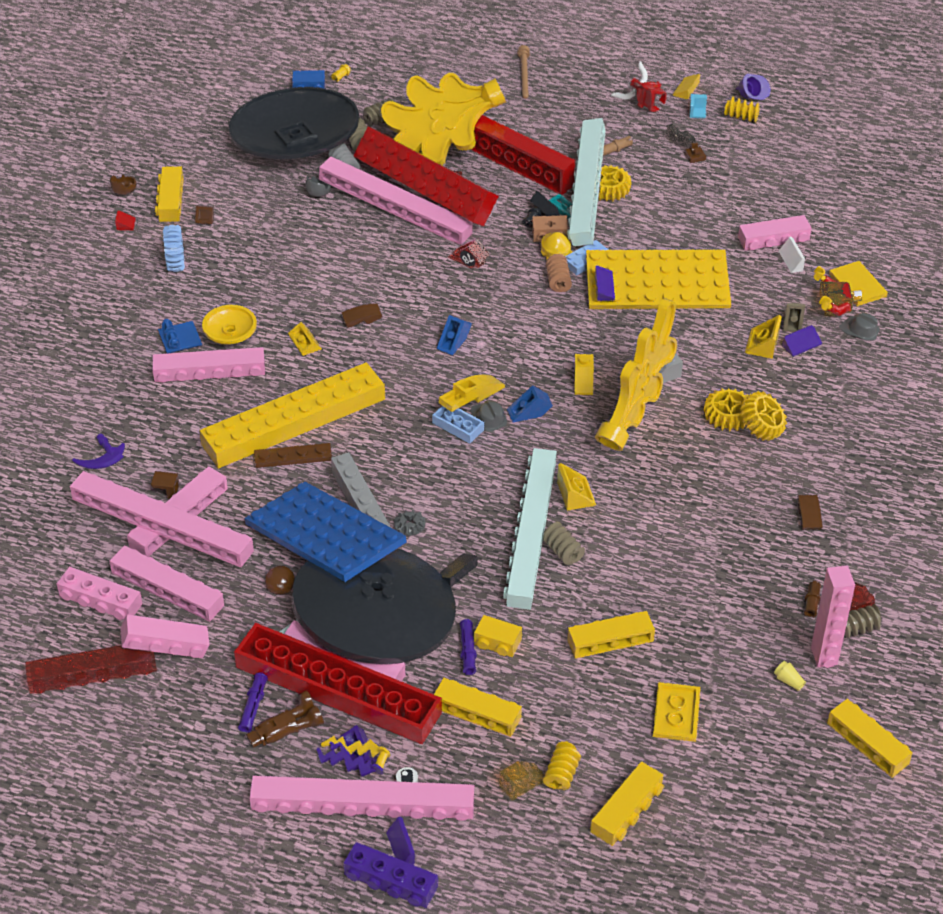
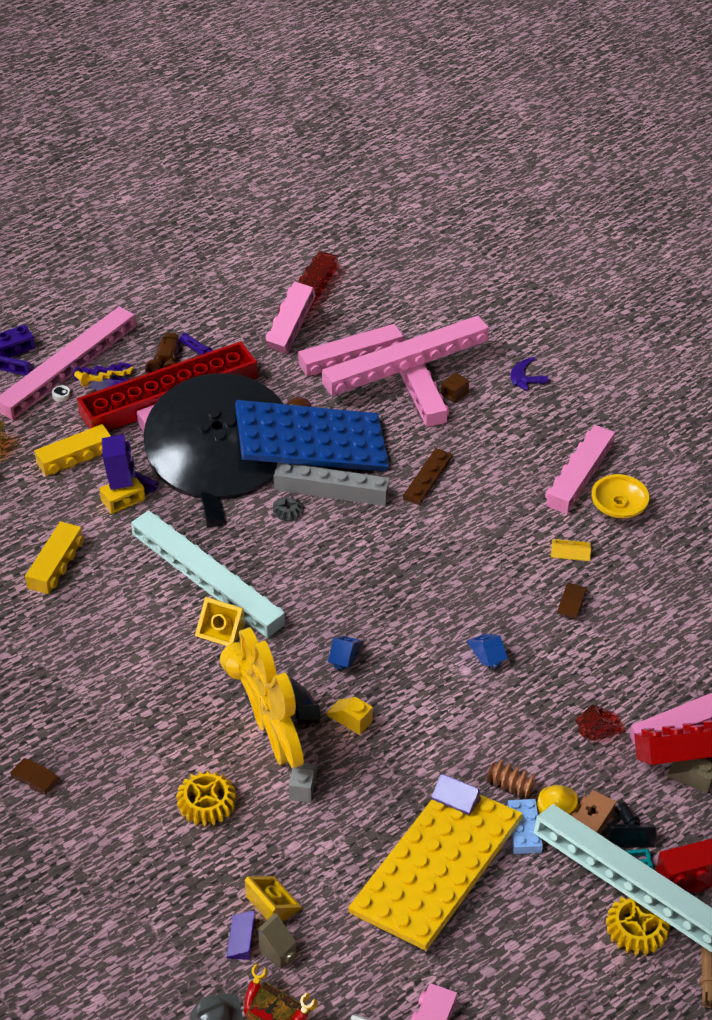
camera: 125 degrees right, 0 degrees up
(99, 593) = (373, 315): bright pink brick -> none
(179, 336) = (640, 468): blue hinge -> none
(292, 415) = (470, 493): yellow brick -> none
(458, 423) = (370, 591): light blue piece -> none
(468, 389) = (394, 613): yellow slope -> none
(484, 628) = (118, 461): none -> dark purple brick
(491, 414) = (364, 622): dark grey piece -> none
(563, 543) = (168, 579): dark tan piece -> none
(603, 401) = (306, 709): none -> black piece
(763, 416) = (155, 799): yellow gear -> none

